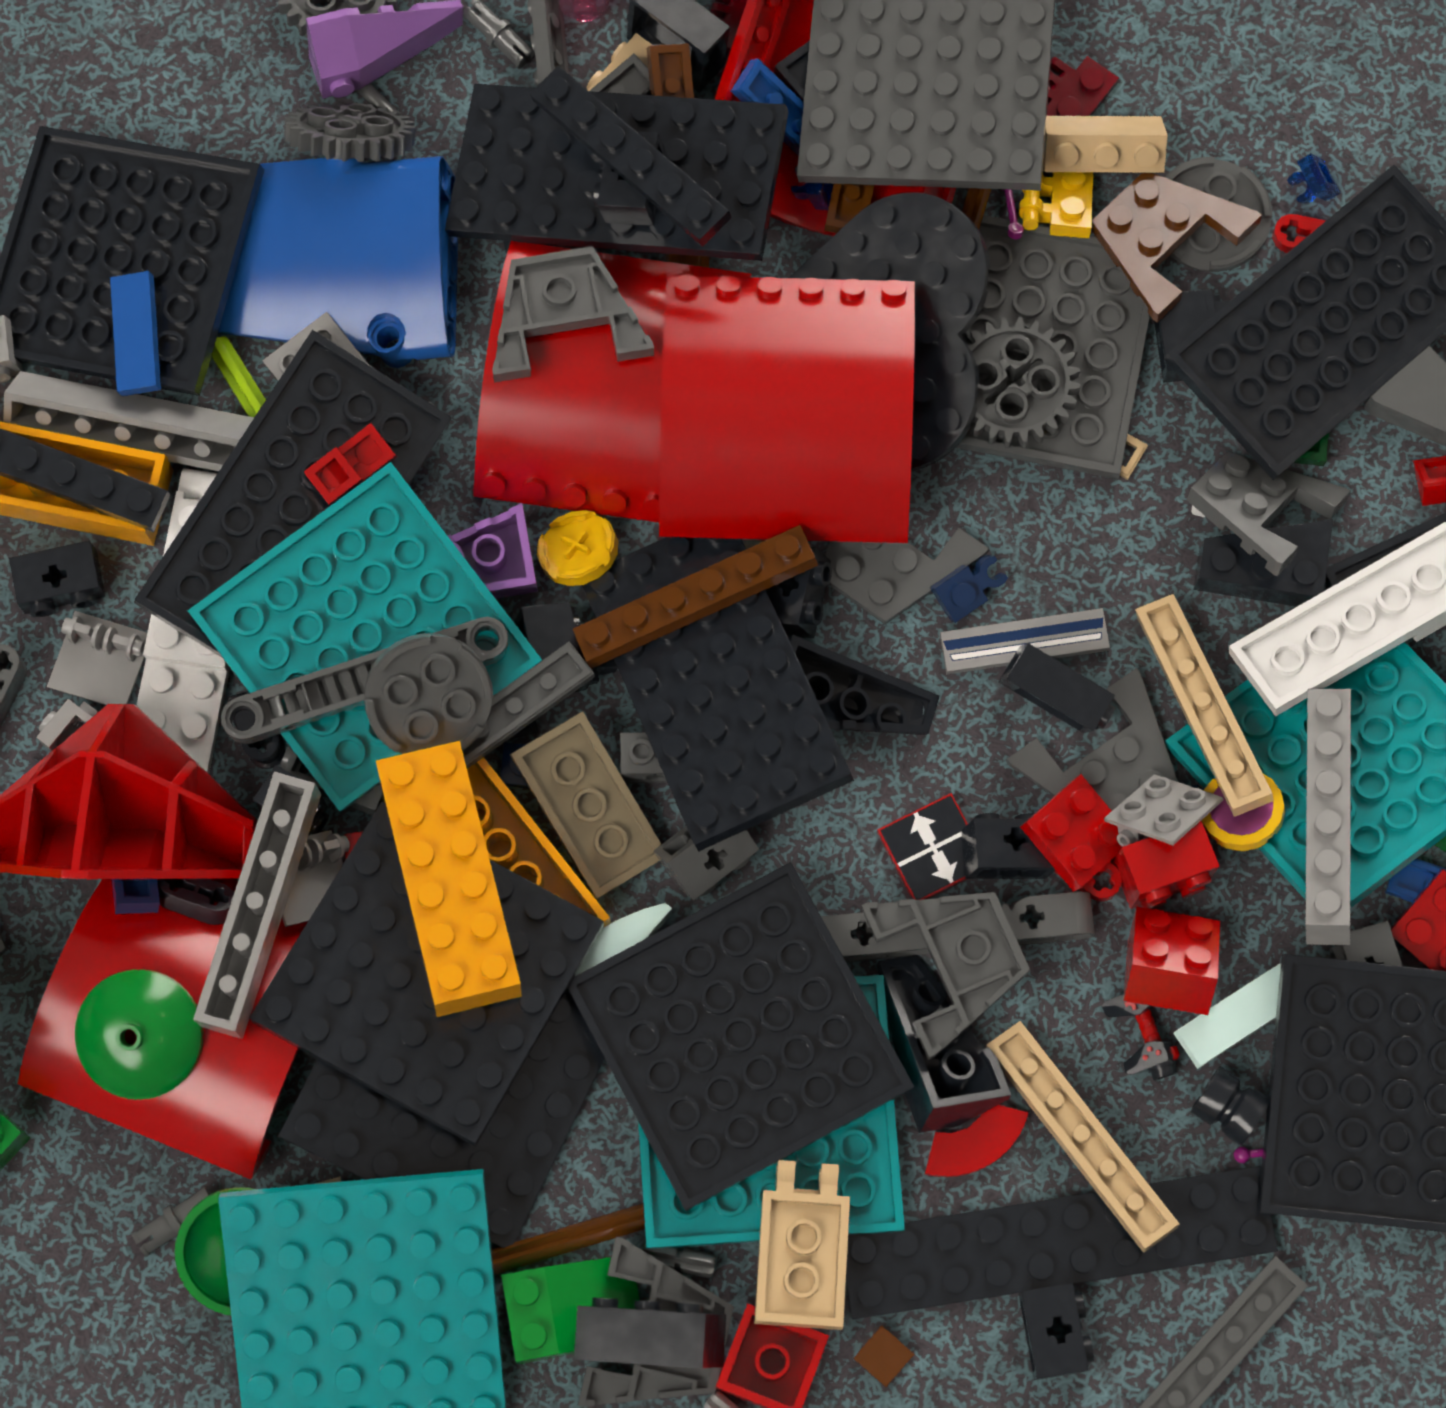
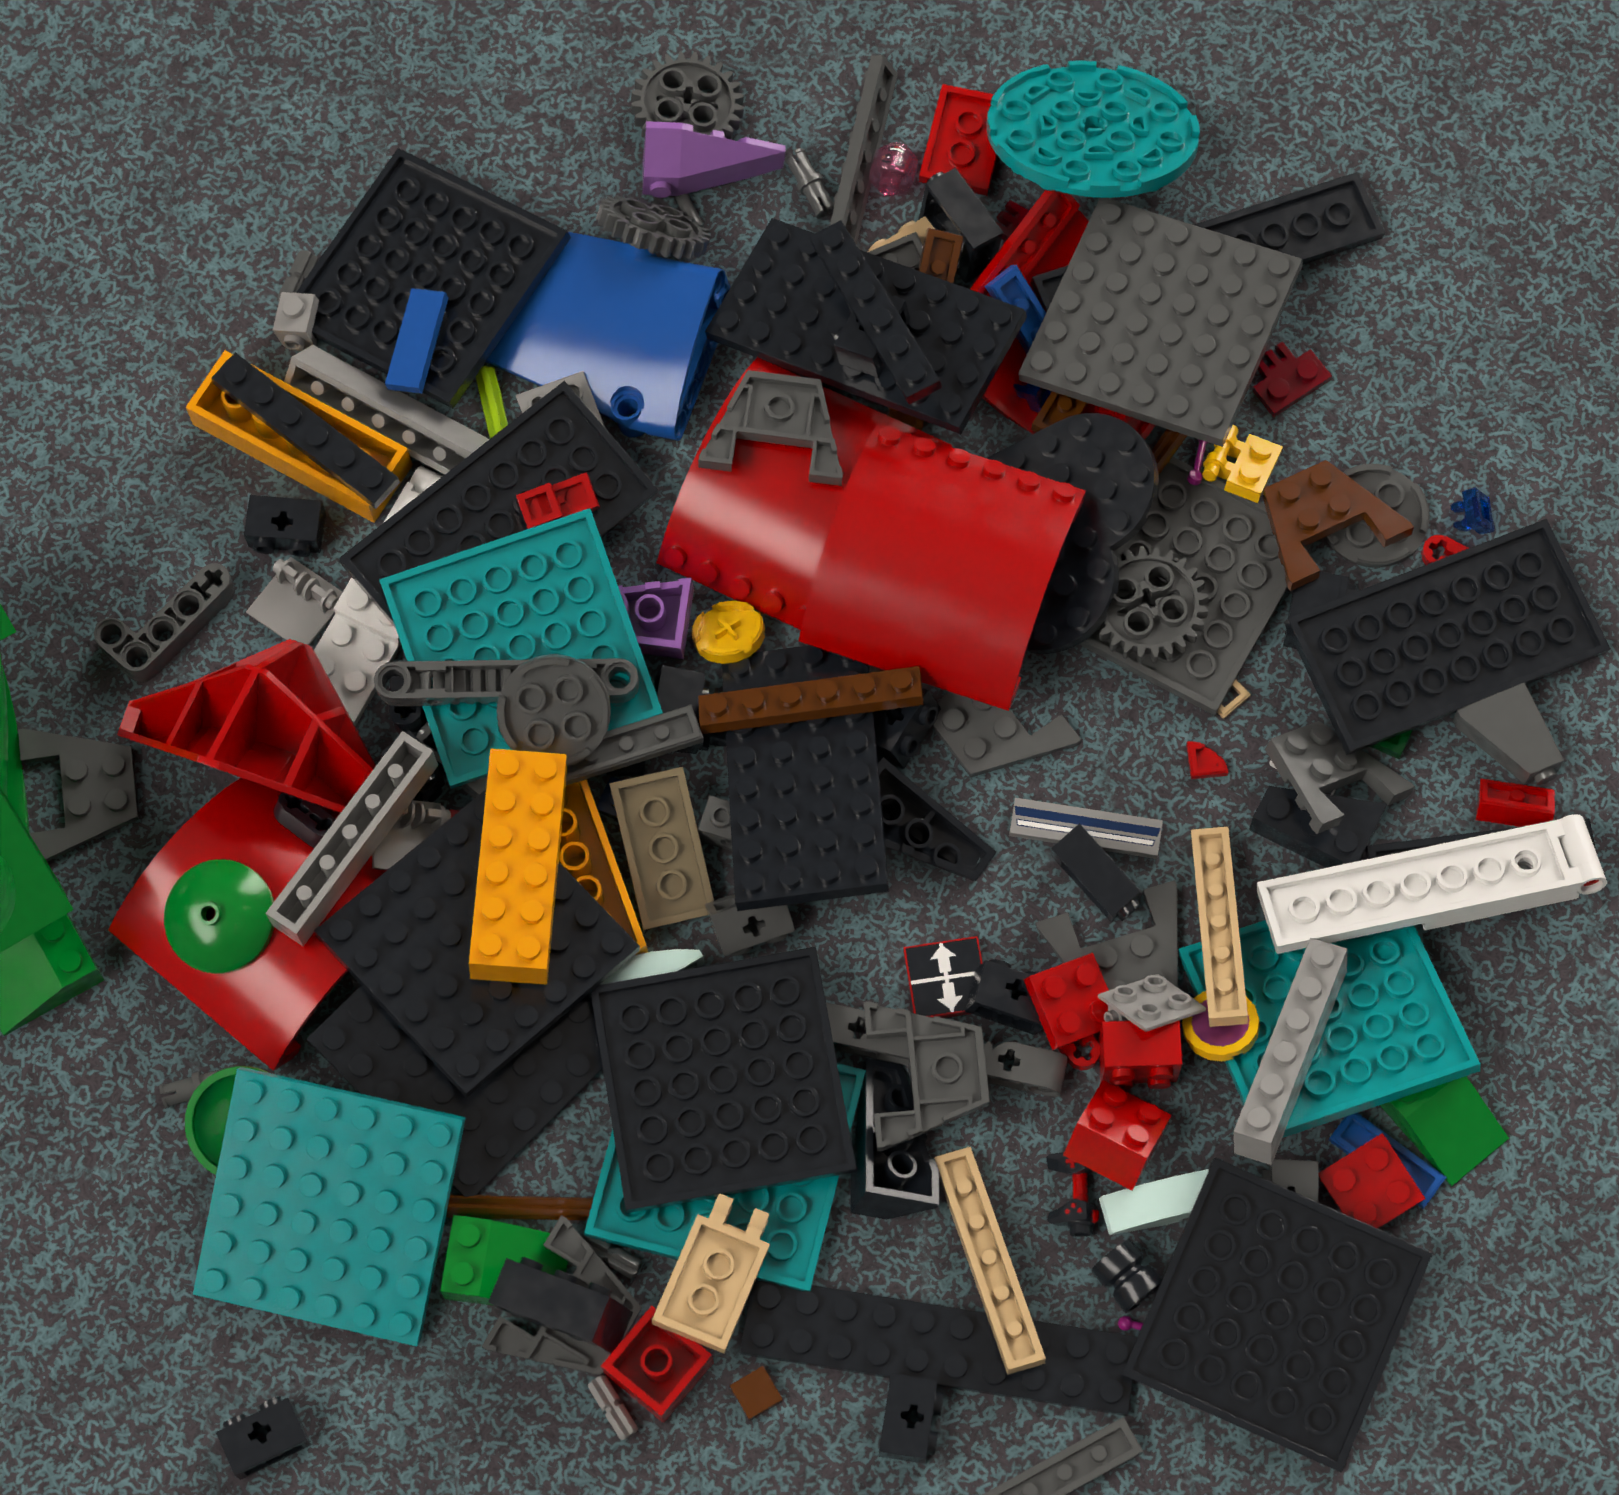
camera: 20 degrees right, 5 degrees down
(60, 725) = (247, 644): light grey bracket -> none
(135, 896) = (257, 800): dark blue plate -> none
(963, 590) = (1047, 769): dark blue plate -> none
(977, 1145) = (897, 1241): red tile -> none
(1105, 144) = (1297, 427): tan brick -> none
(1123, 531) = (1204, 761): none -> red tile

